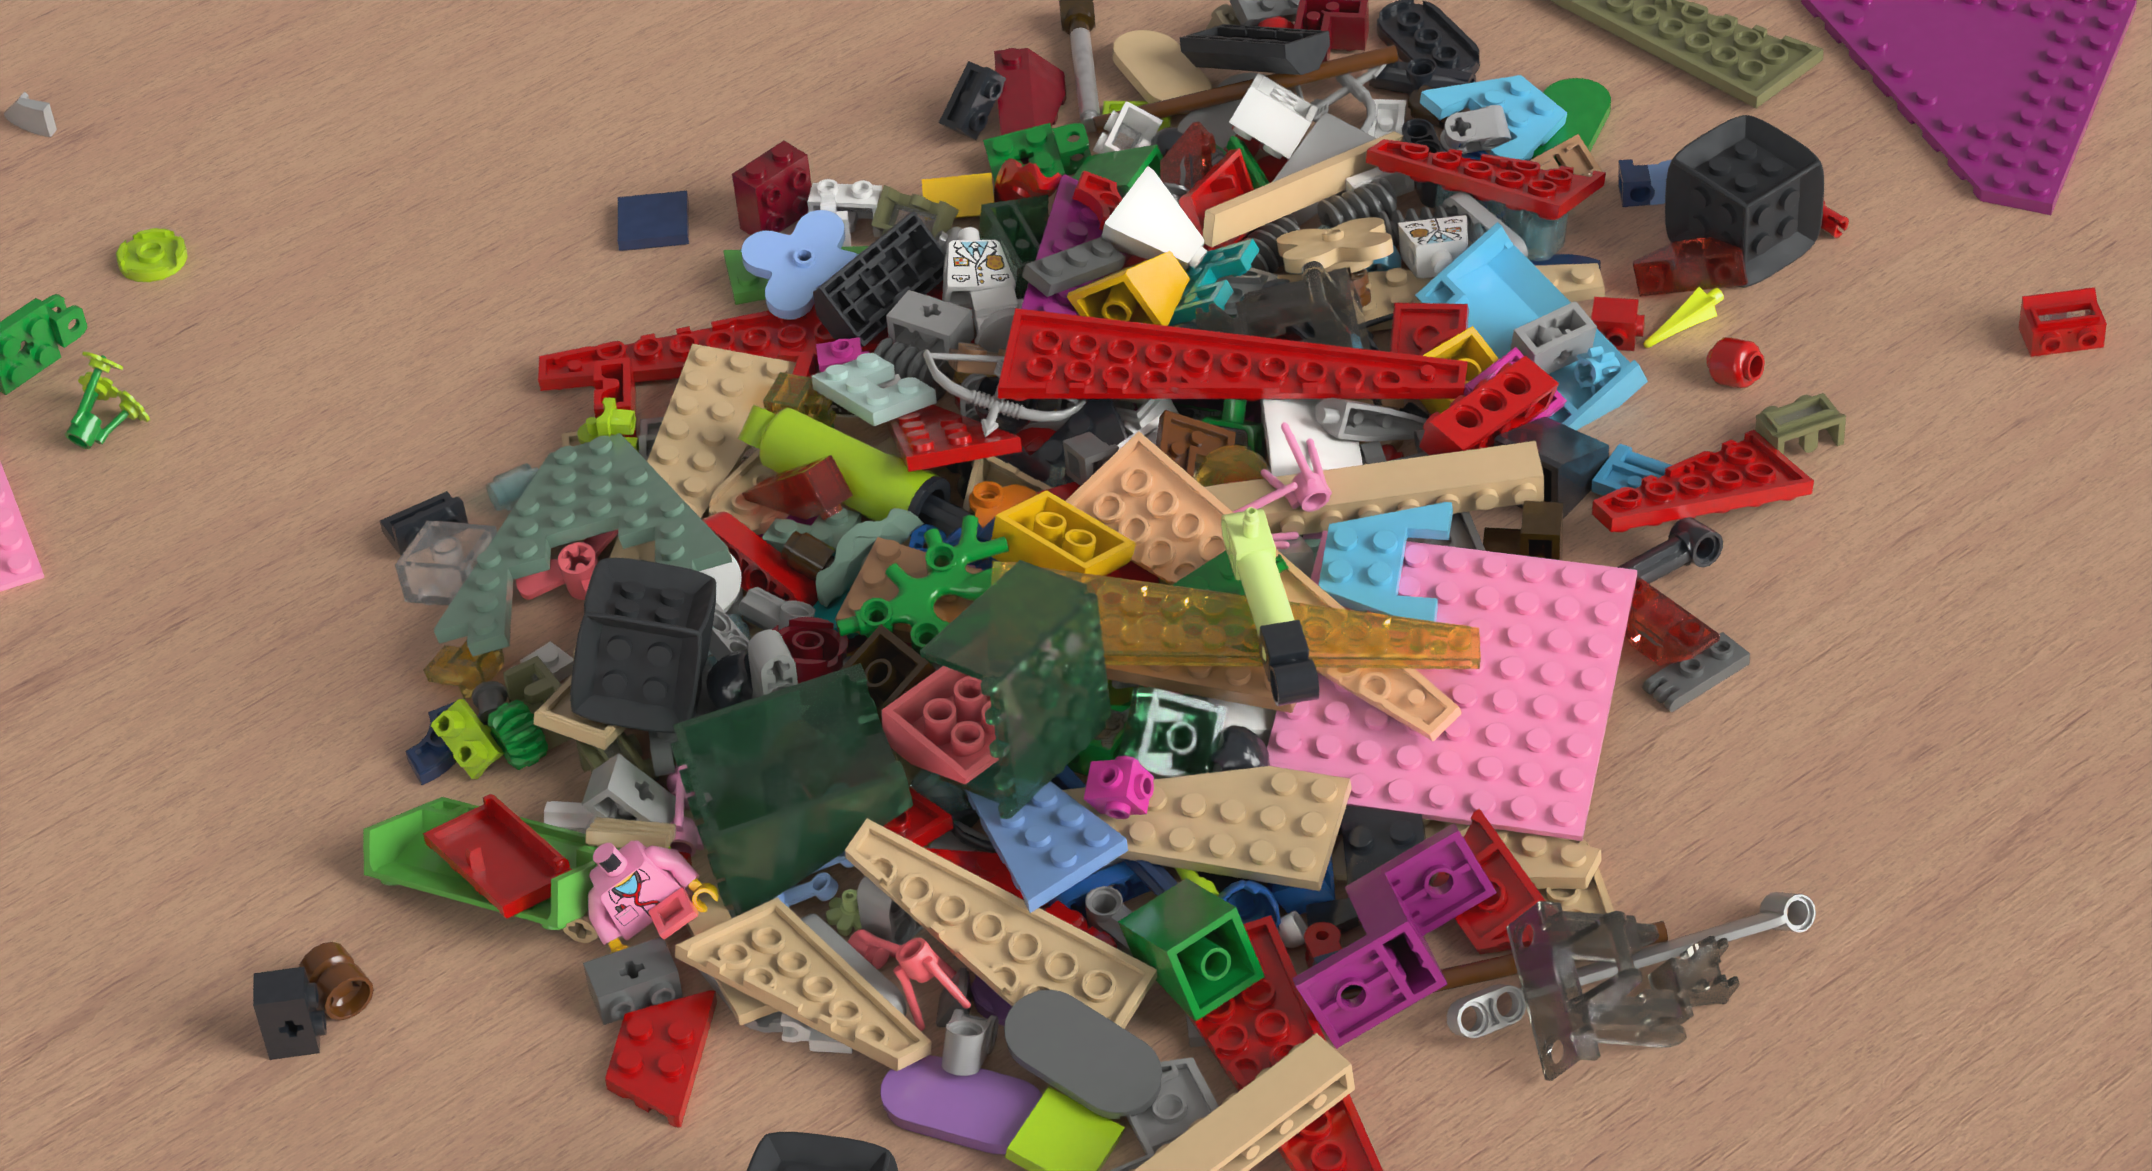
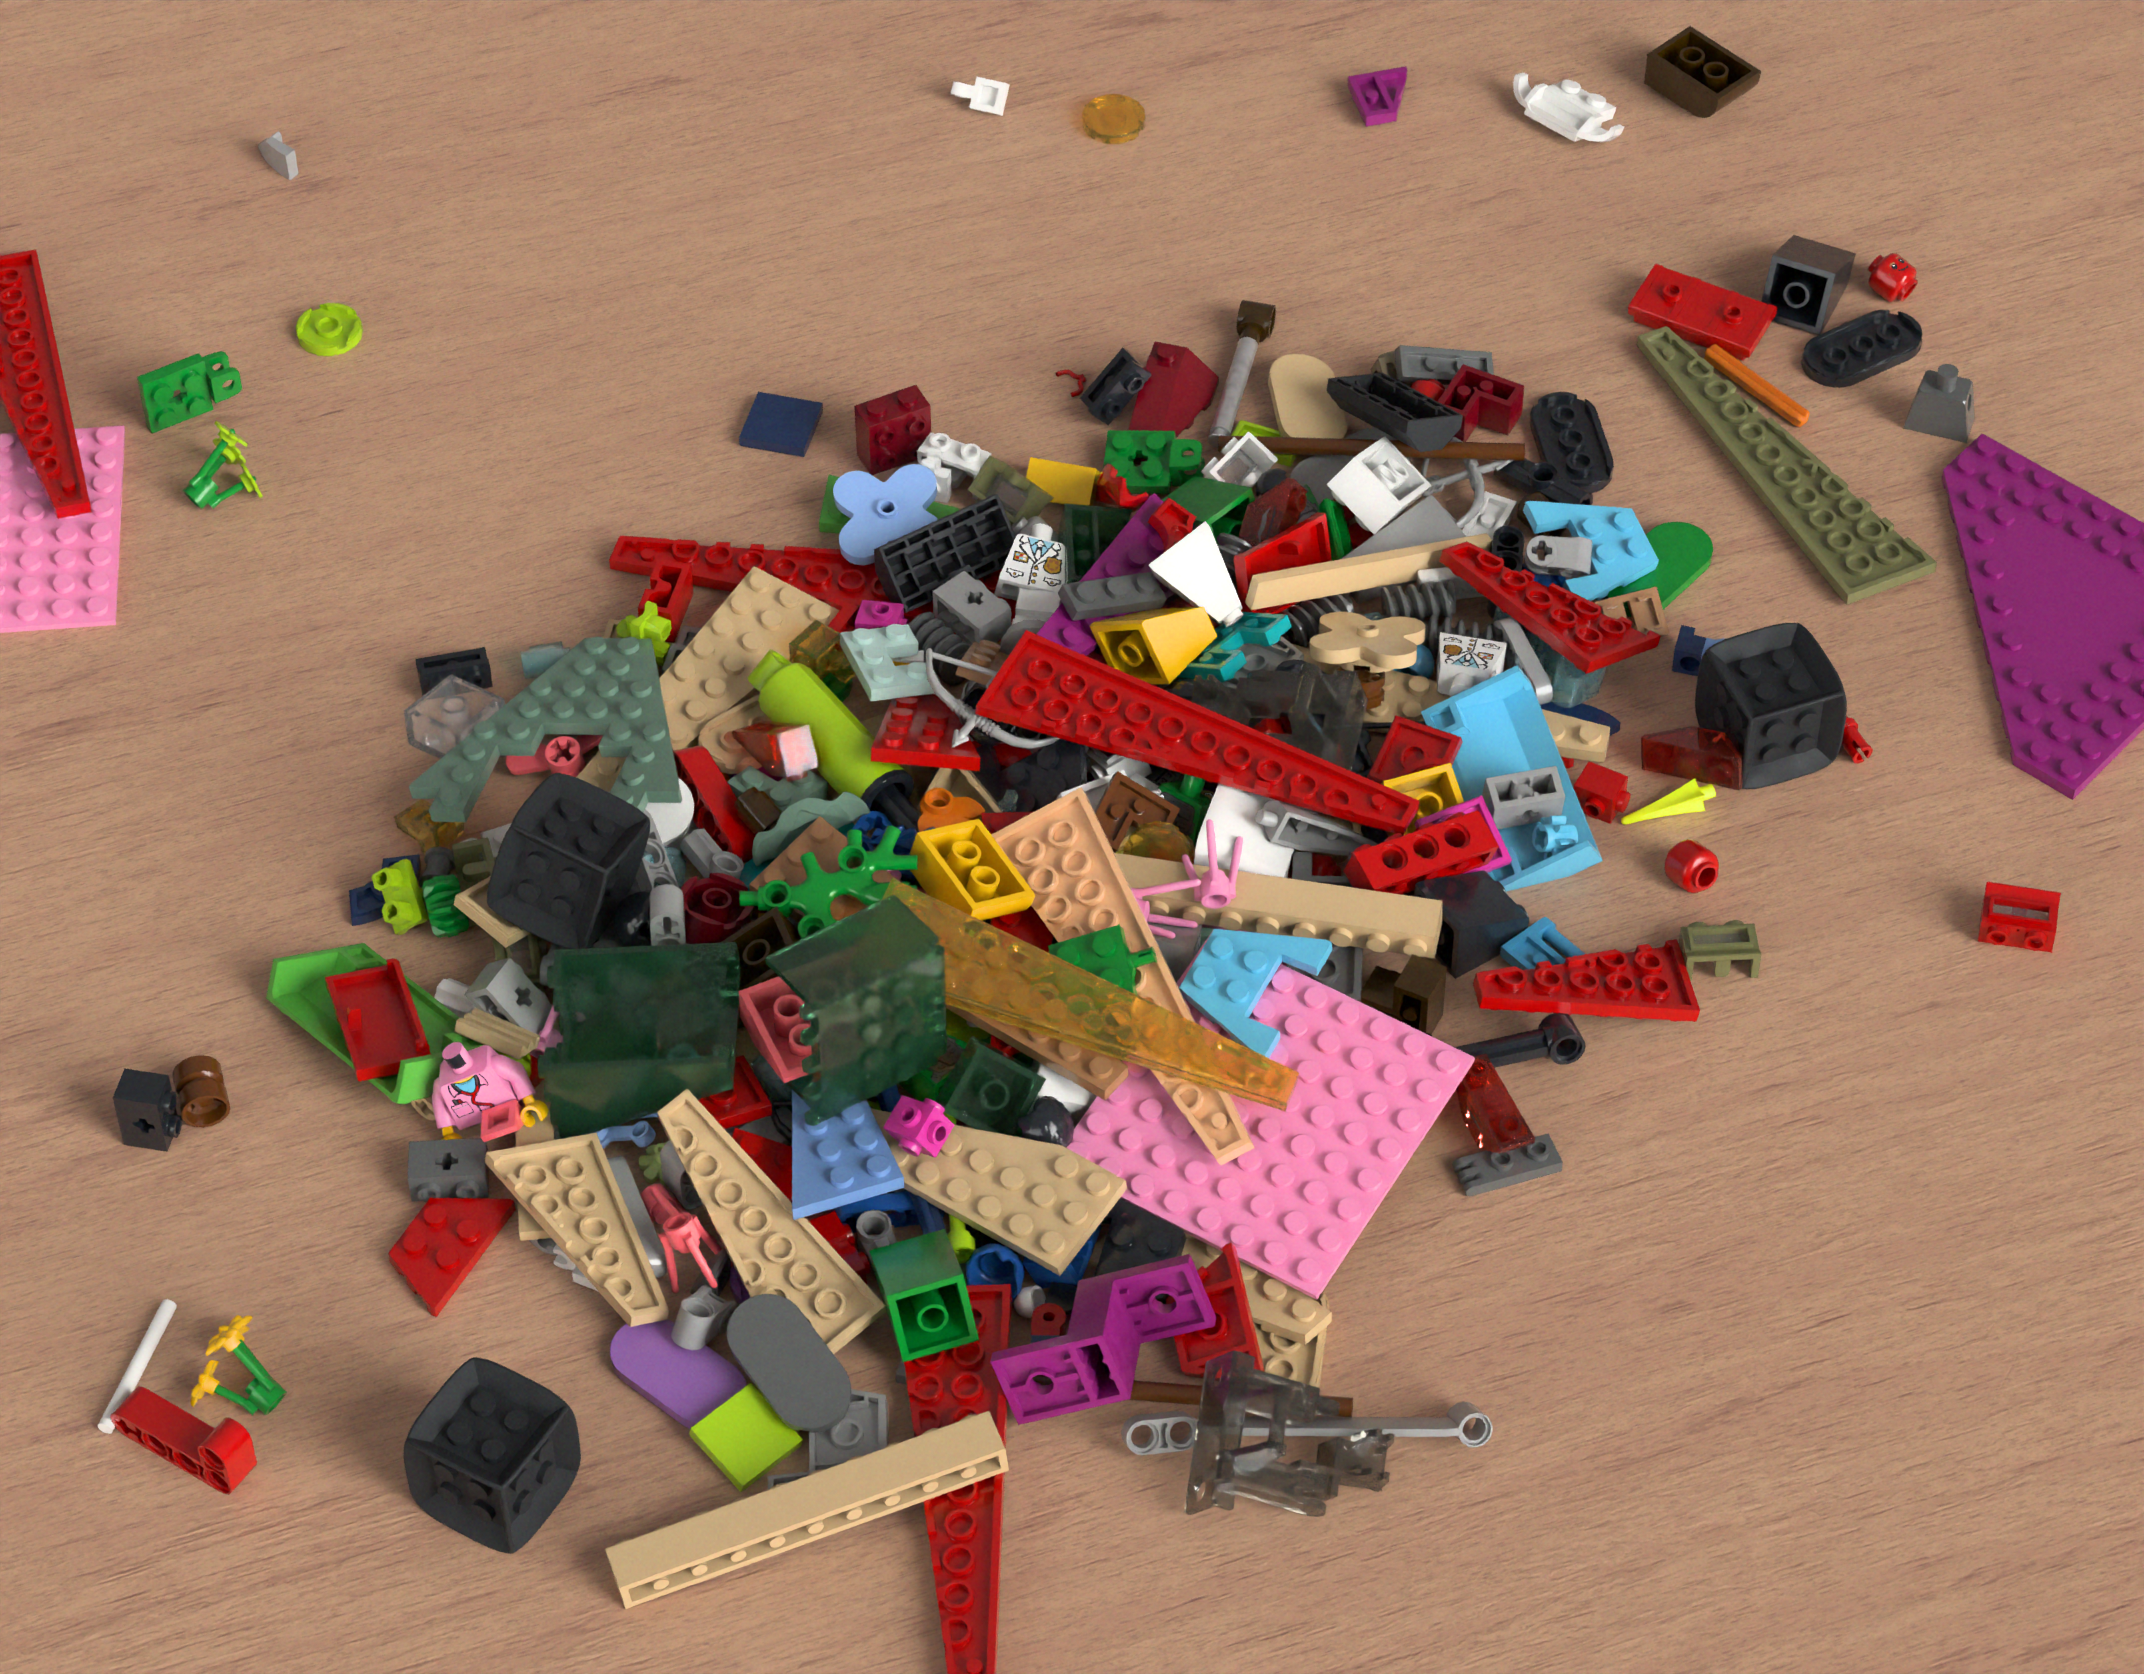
camera: 15 degrees right, 5 degrees up
(923, 107) = (1081, 378): none -> red piece
(1085, 455) = (1034, 792): dark grey brick -> none
(1281, 637) = (1111, 999): piece -> none

